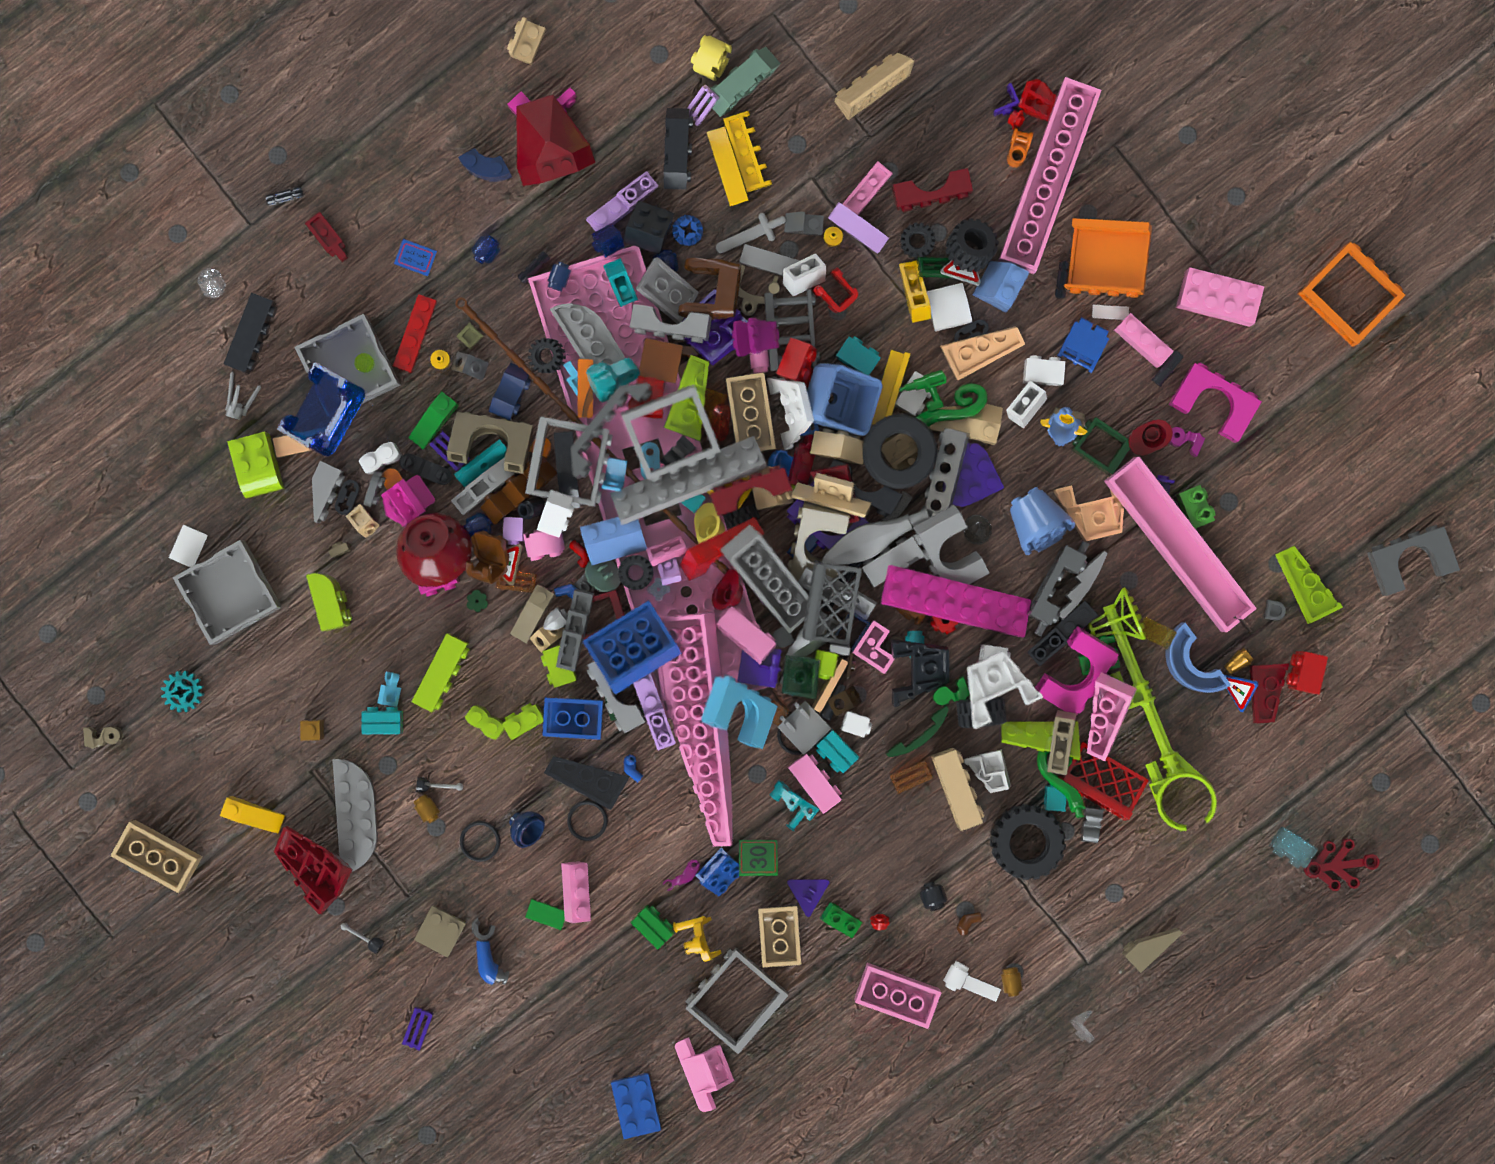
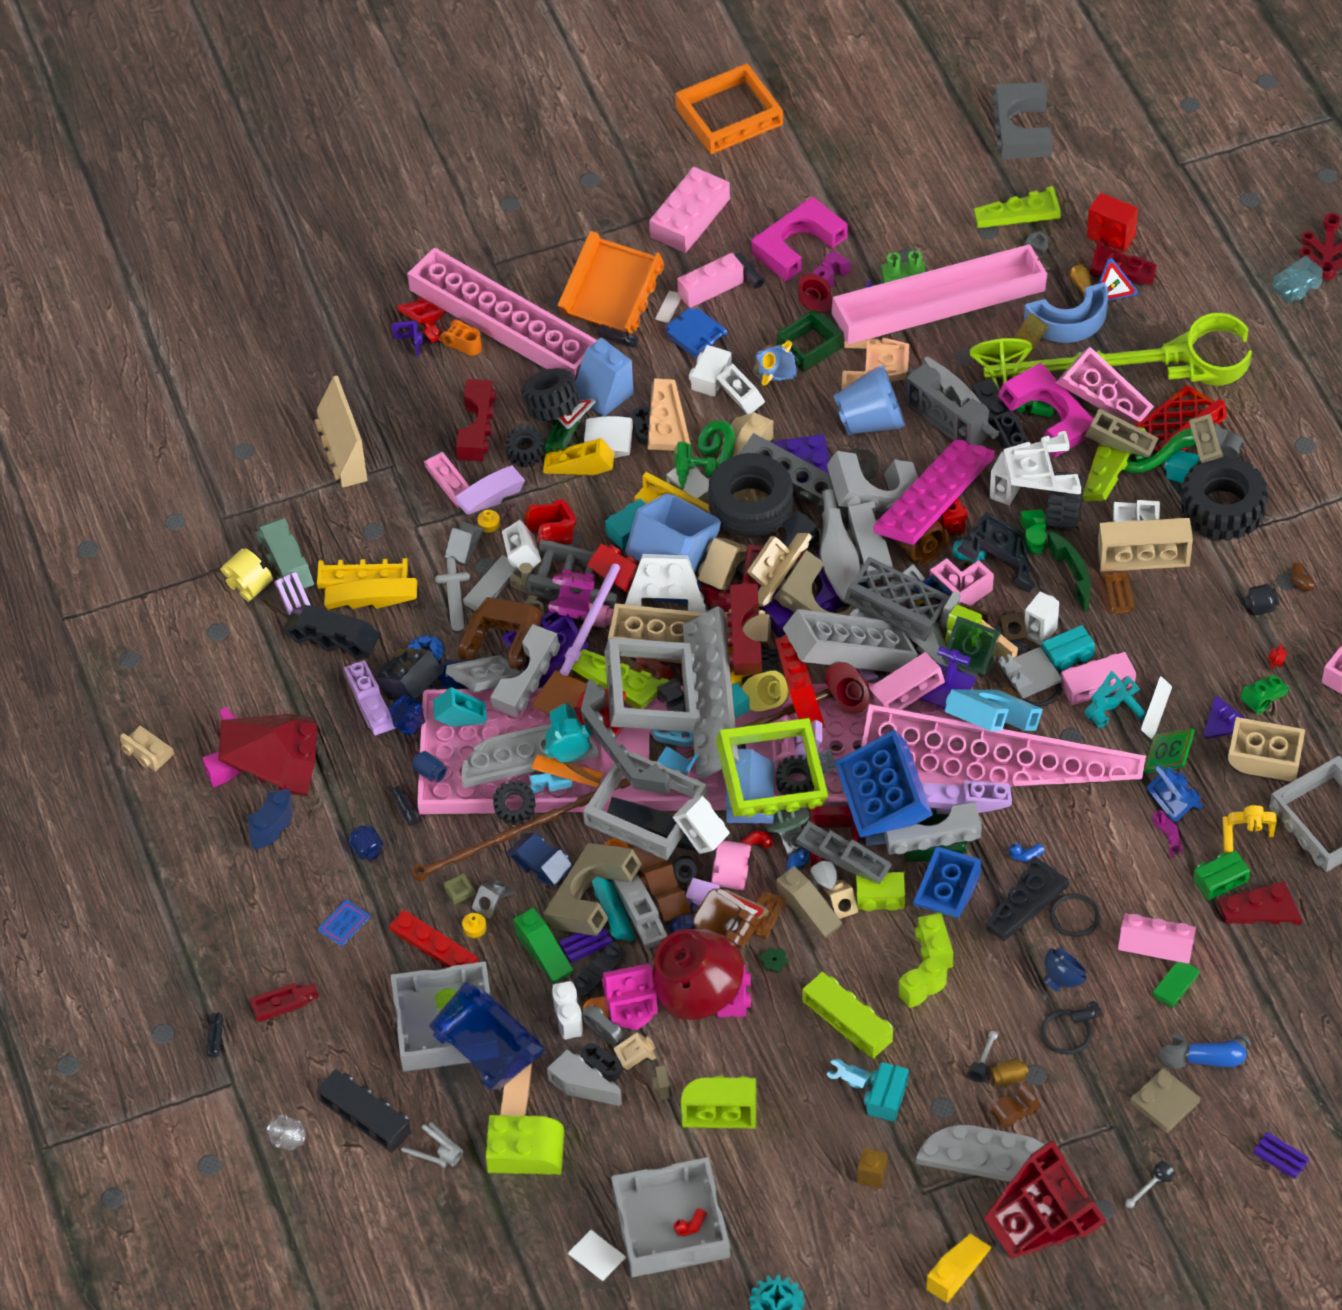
camera: 70 degrees left, 35 degrees down
(226, 610) = (692, 1226): none -> red arm
(398, 821) = (1009, 1110): none -> reddish brown leg
(495, 856) = (1090, 1012): none -> black arm
(636, 963) = (1263, 904): none -> dark red wing
(644, 537) = (767, 732): none -> lime window
(694, 357) = (573, 653): none -> lavender bar
(801, 836) = (1156, 708): none -> white sticker
(1068, 817) = (1206, 438): none -> dark tan plate

